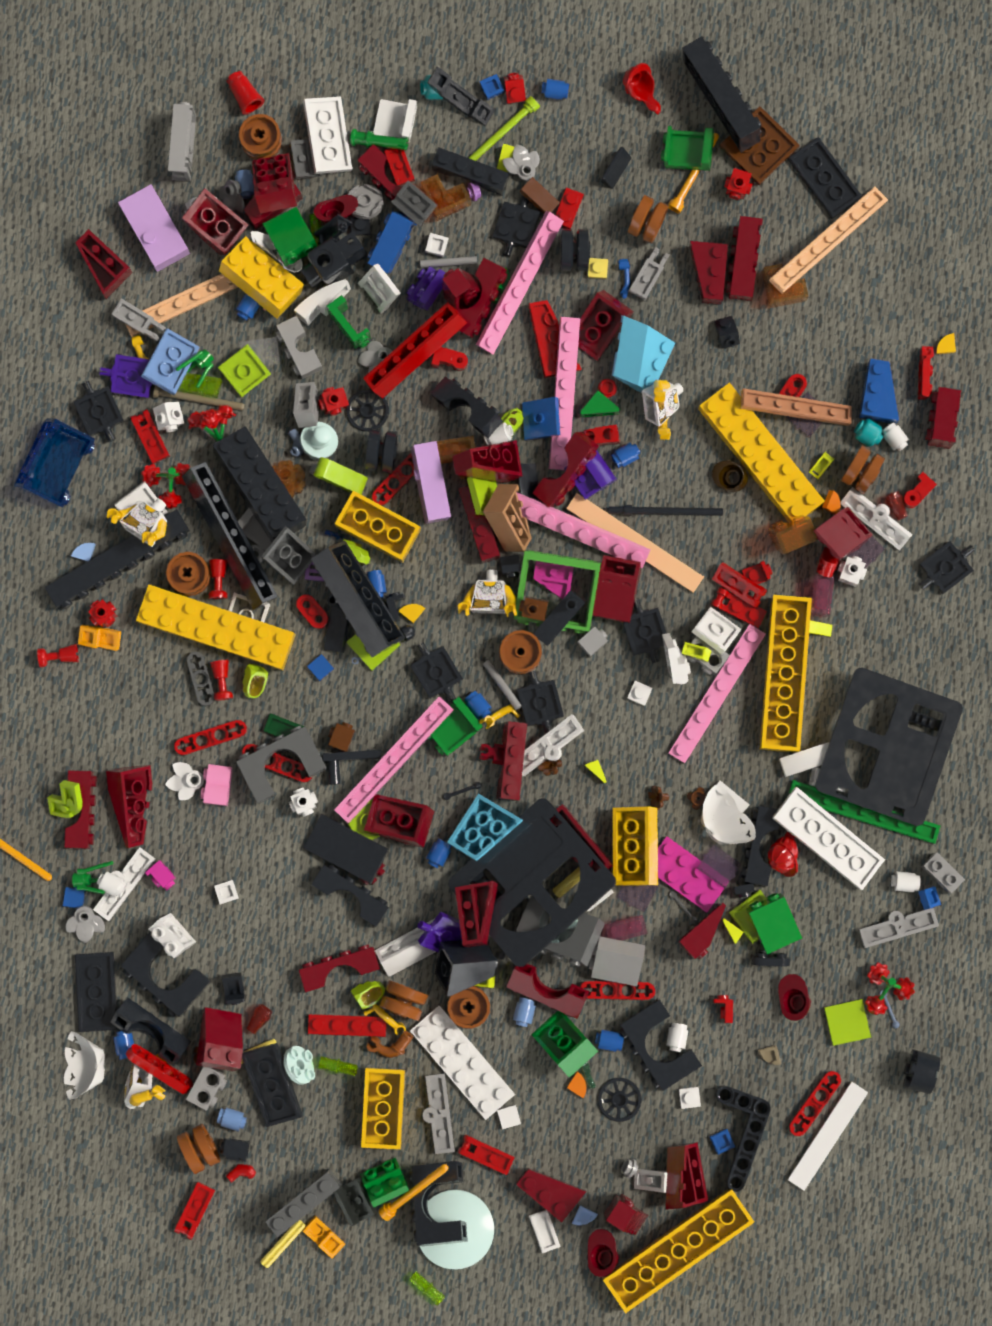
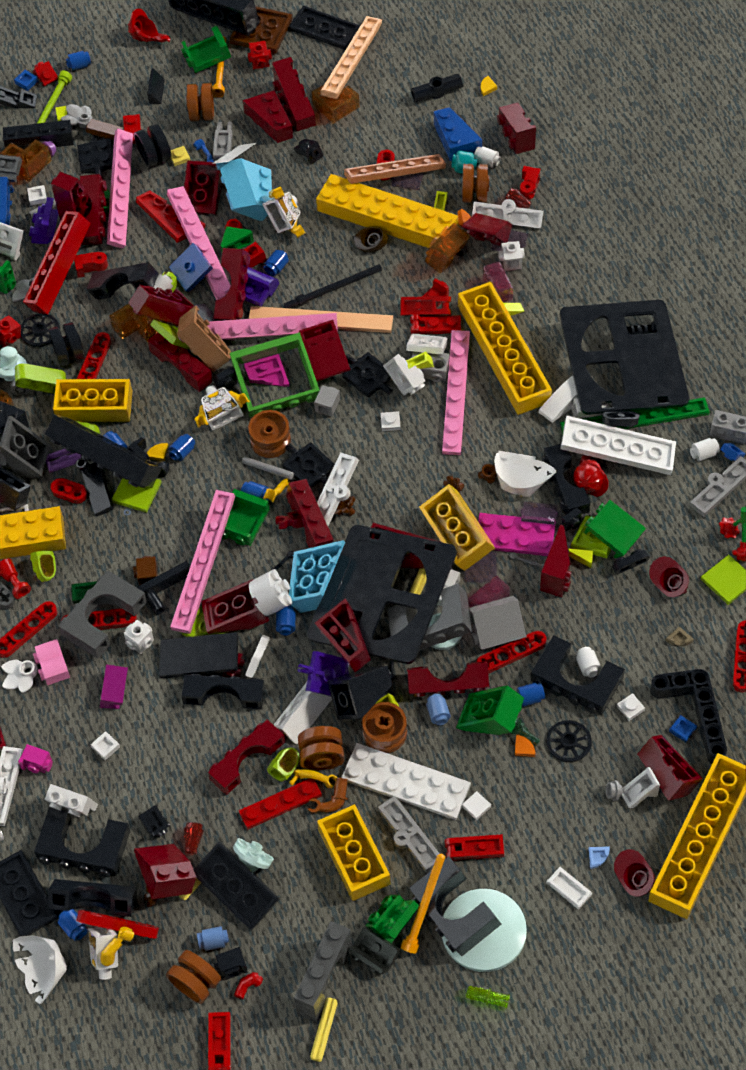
camera: 25 degrees left, 25 degrees down
(202, 1084) = (171, 922): light grey brick -> none
(259, 839) = (113, 687): none -> magenta hinge
(320, 667) = (98, 530): blue tile -> none
(323, 1236) = (360, 1002): light orange slope -> none
(337, 1066) = (290, 841): clear neon green axle -> none
(390, 883) = (257, 656): none -> white tile
(430, 482) = (121, 346): lavender brick -> none
(434, 829) = (270, 592): none -> white brick
(435, 620) = (181, 447): none -> blue brick
(436, 672) = (202, 483): black plate -> none
(534, 608) = (262, 390): reddish brown brick -> none
(551, 1193) = (553, 847): dark red wedge -> none
(559, 618) = (288, 387): black piece -> none
(596, 769) = (388, 492): neon yellow piece -> none
(624, 1214) = (634, 821): dark red wedge -> none
(648, 305) = (234, 153): none -> white sticker
(727, 1011) = (617, 617): red bracket -> none
(827, 563) = (488, 256): red leg -> none
(845, 811) = (620, 418): none -> black plate
(906, 323) = (436, 87): none -> black piece
(925, 372) = (482, 108): red hinge -> none
(946, 567) = (585, 222): black plate -> none

